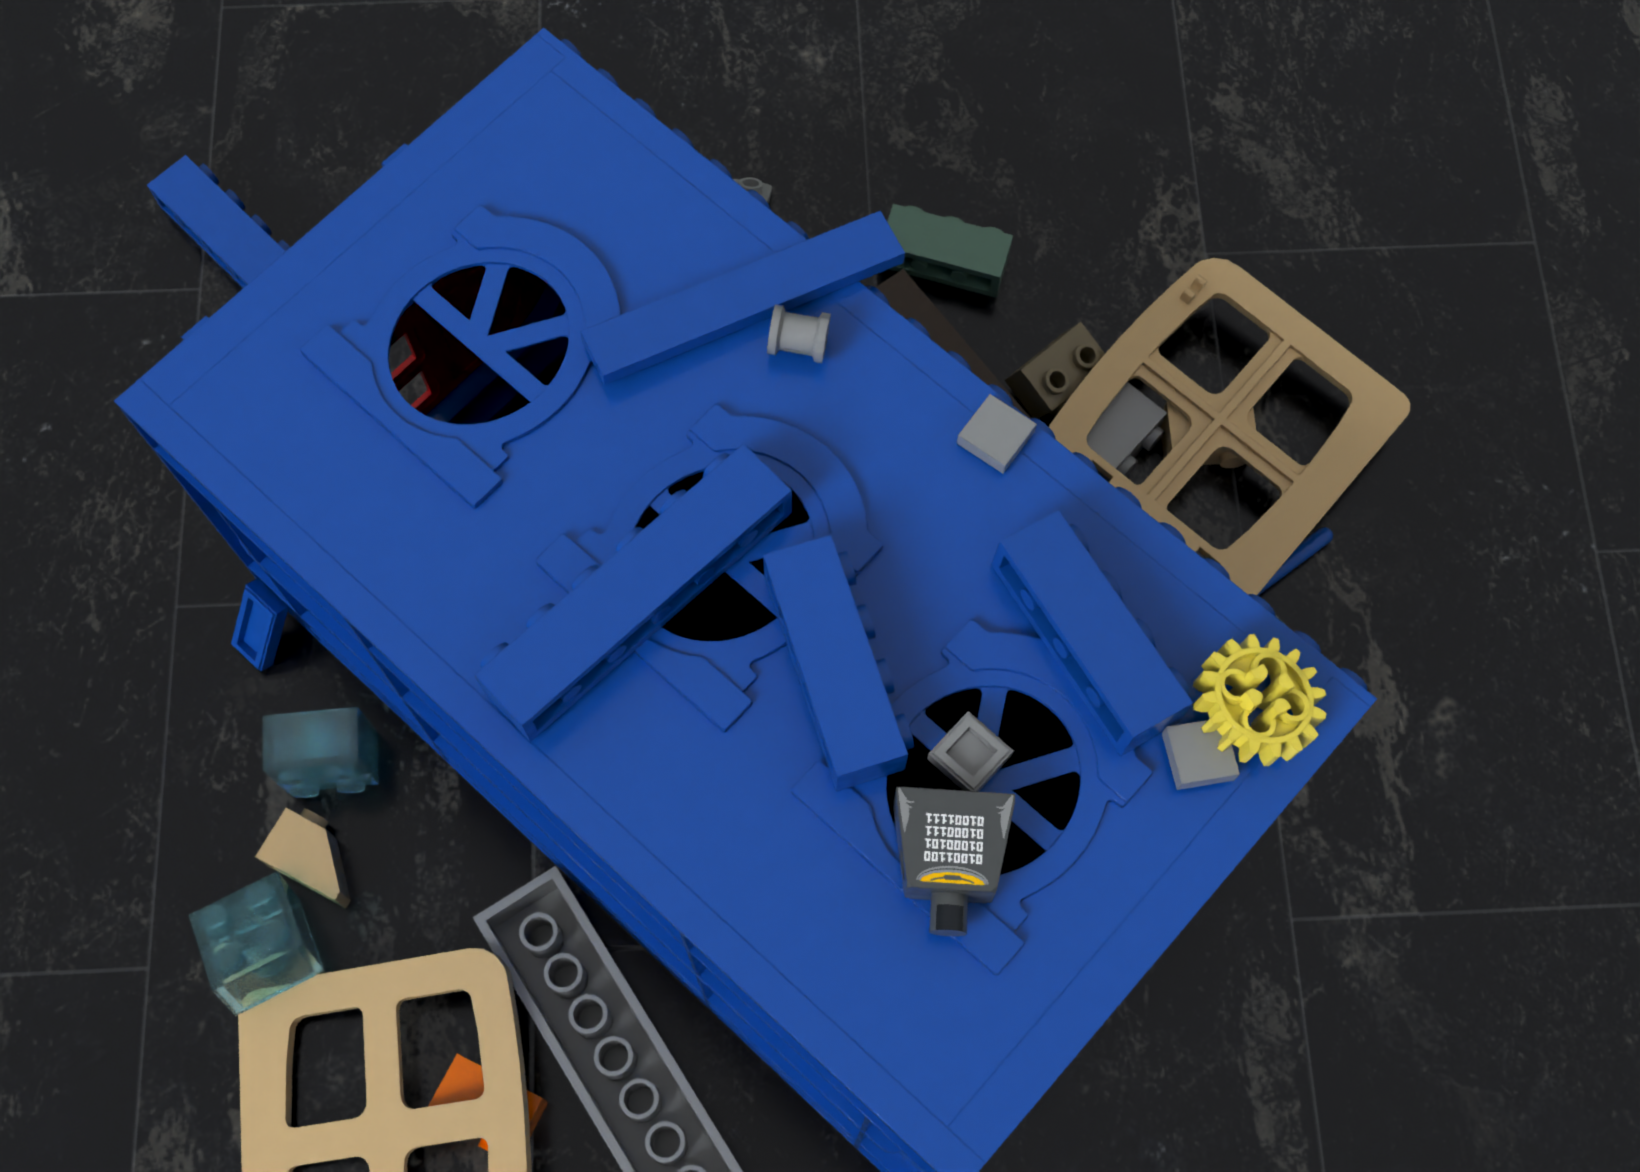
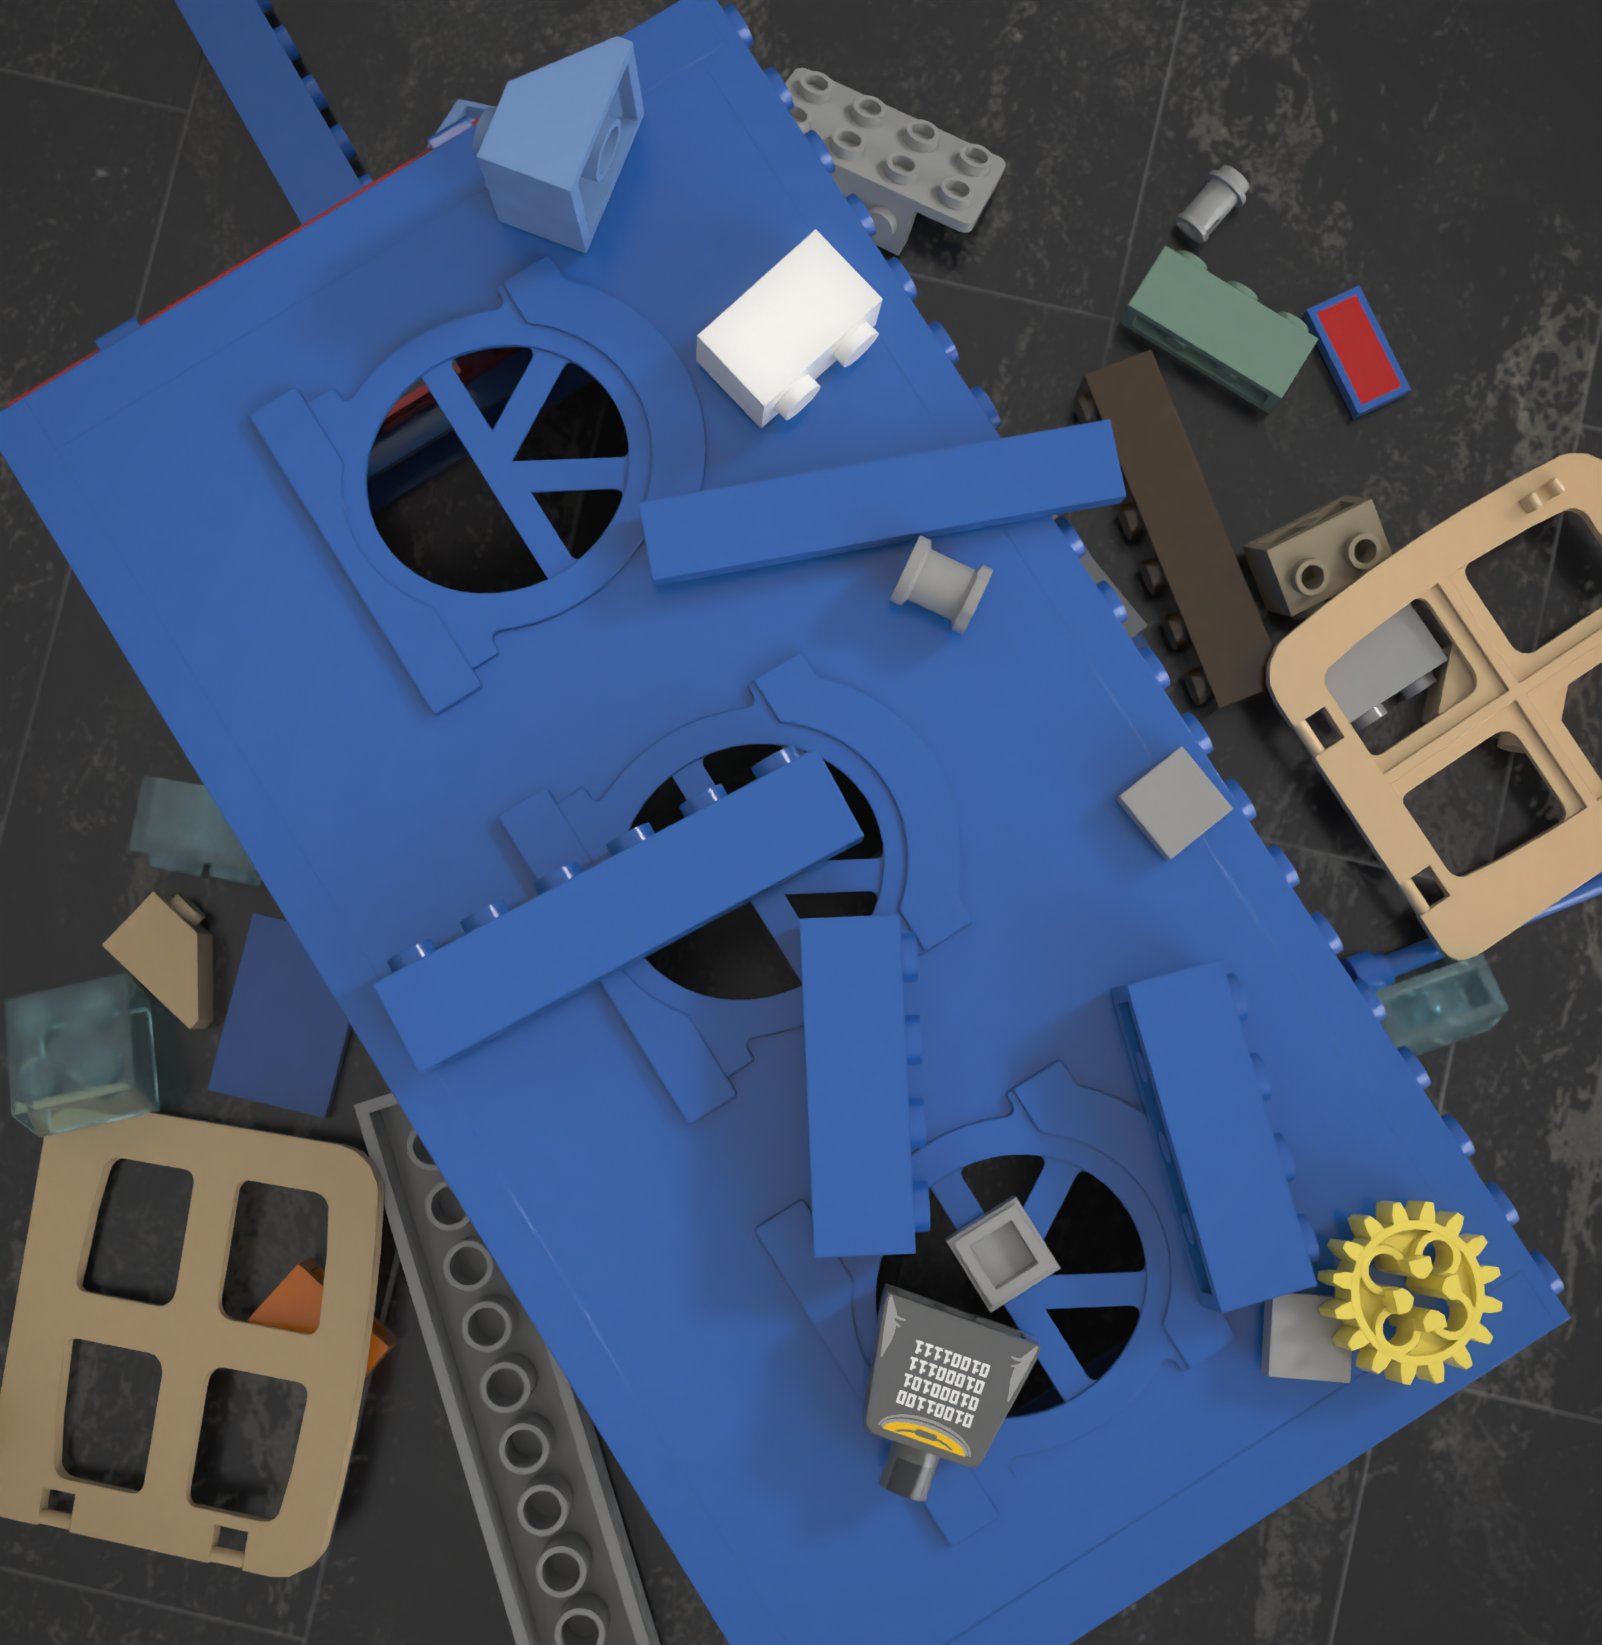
camera: 15 degrees right, 15 degrees up
(408, 879) = (281, 1027): none -> blue tile
(473, 124) = (561, 142): none -> medium blue slope
(653, 205) = (790, 331): none -> white brick
(921, 167) = (1223, 192): none -> light grey pin
(1043, 244) = (1356, 352): none -> tile

